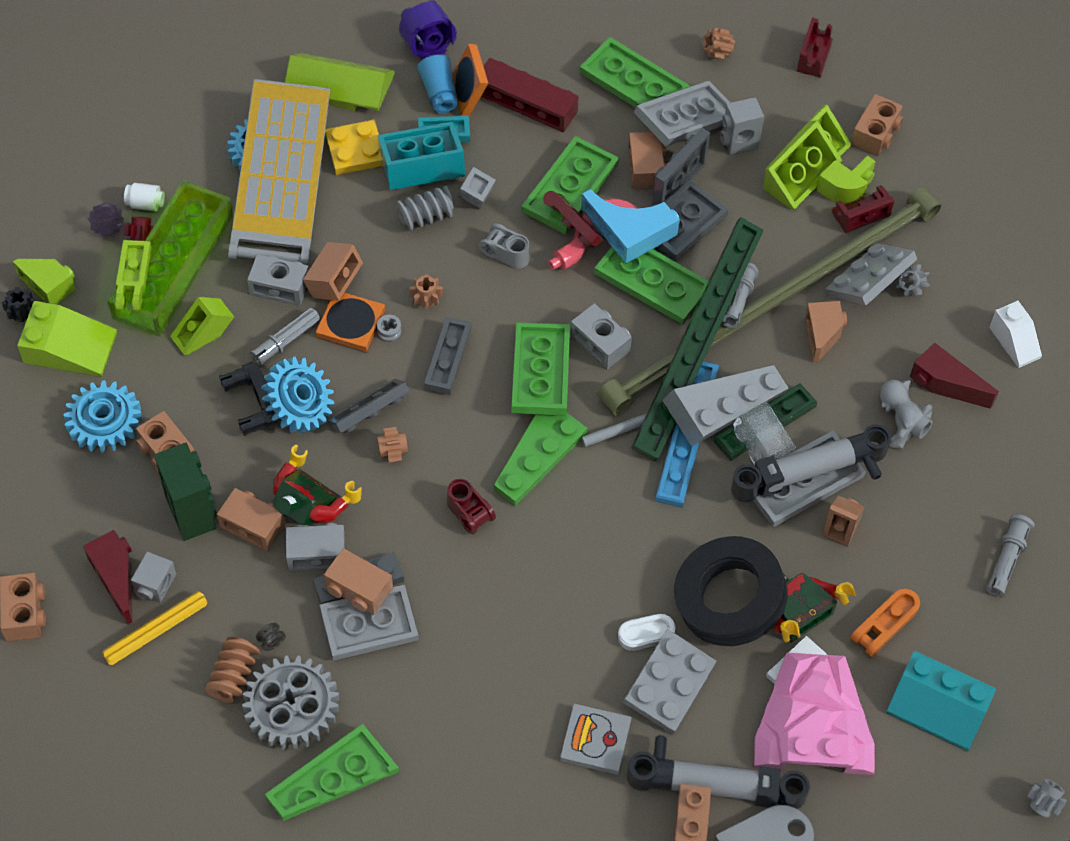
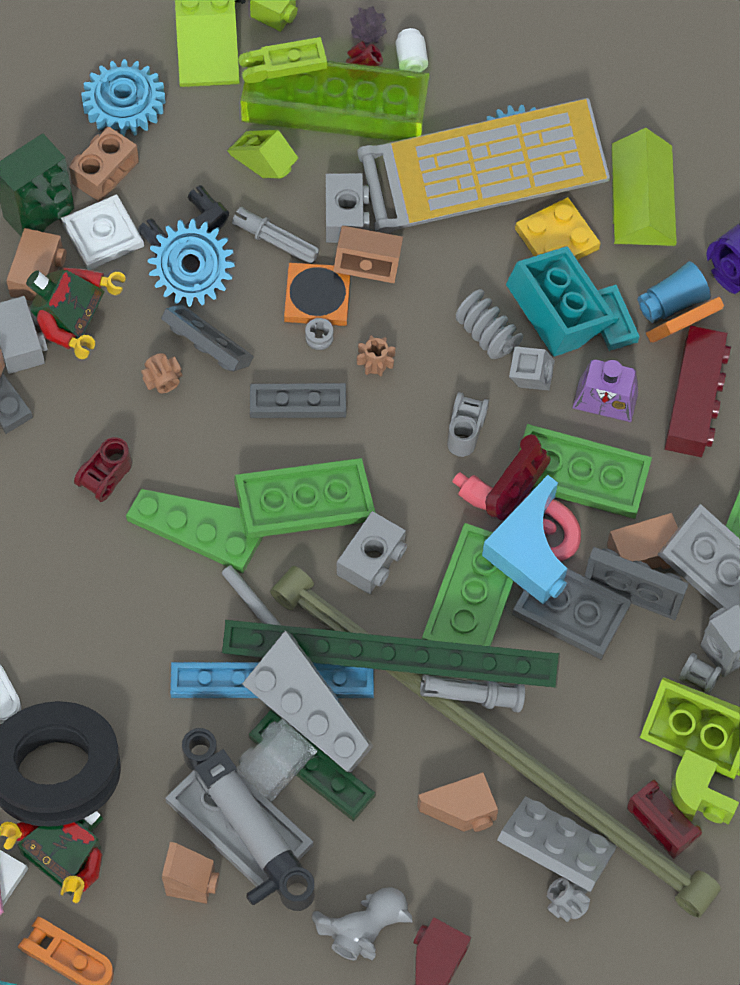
camera: 75 degrees right, 5 degrees up
(232, 464) = (102, 232): none -> white tile
(516, 141) = (607, 390): none -> medium lavender torso
(756, 156) = (700, 673): none -> light grey bush

